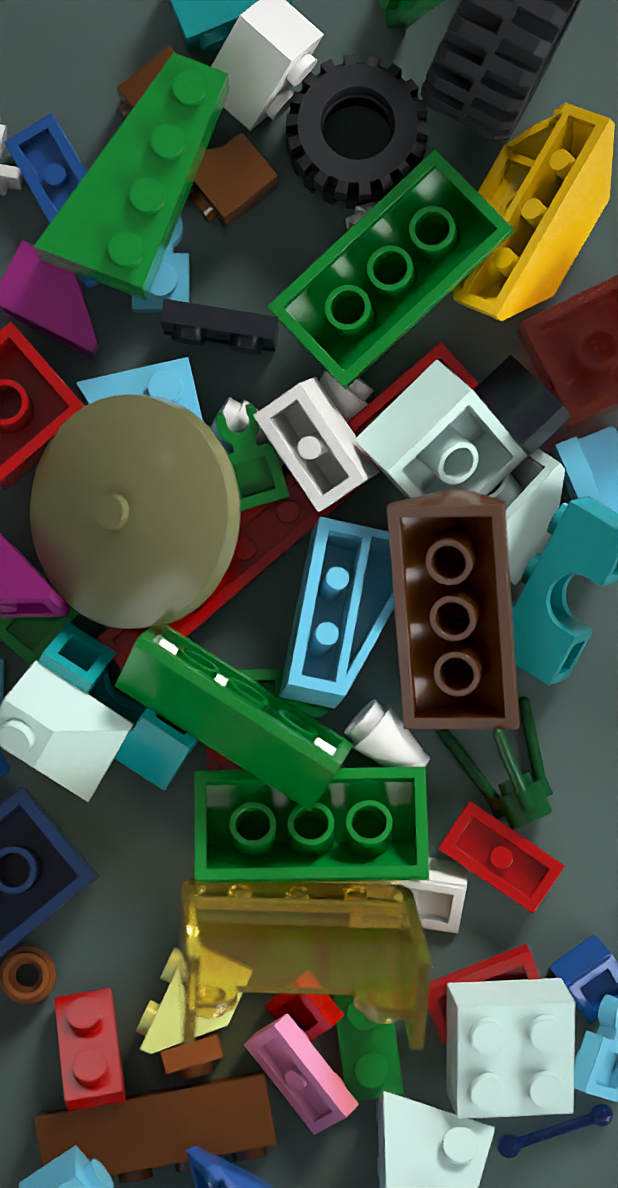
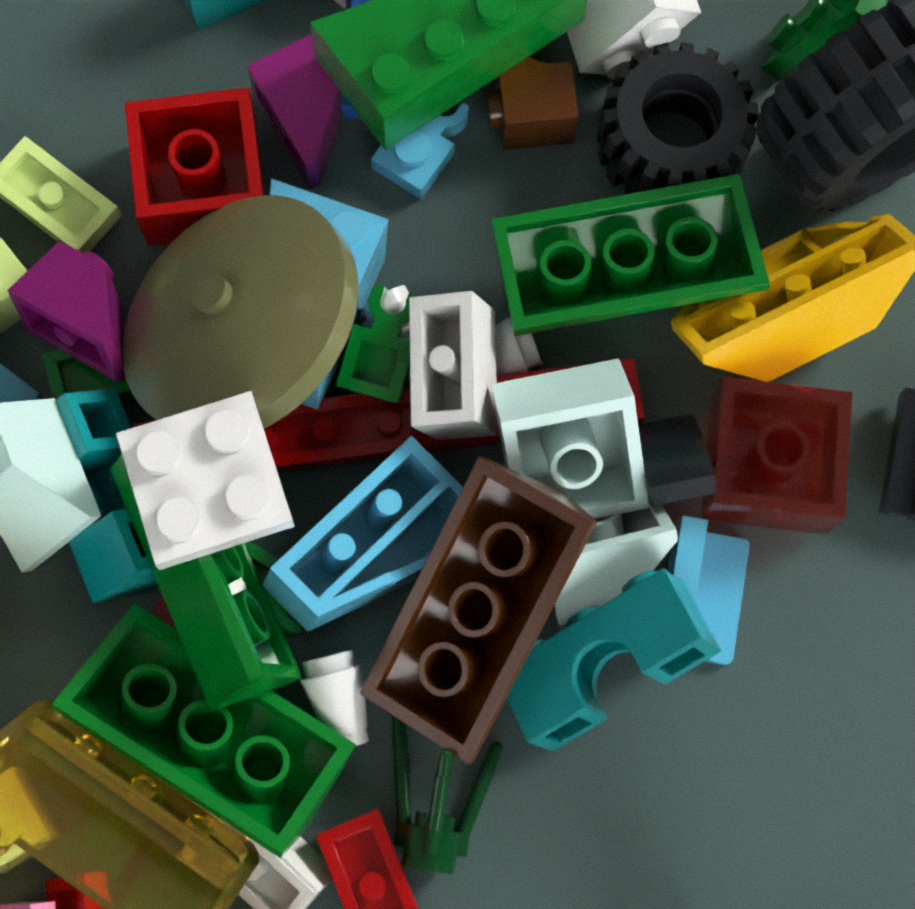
camera: 30 degrees right, 10 degrees down
(208, 653) = (204, 480): none -> white plate
(238, 329) = (438, 216): black plate -> none

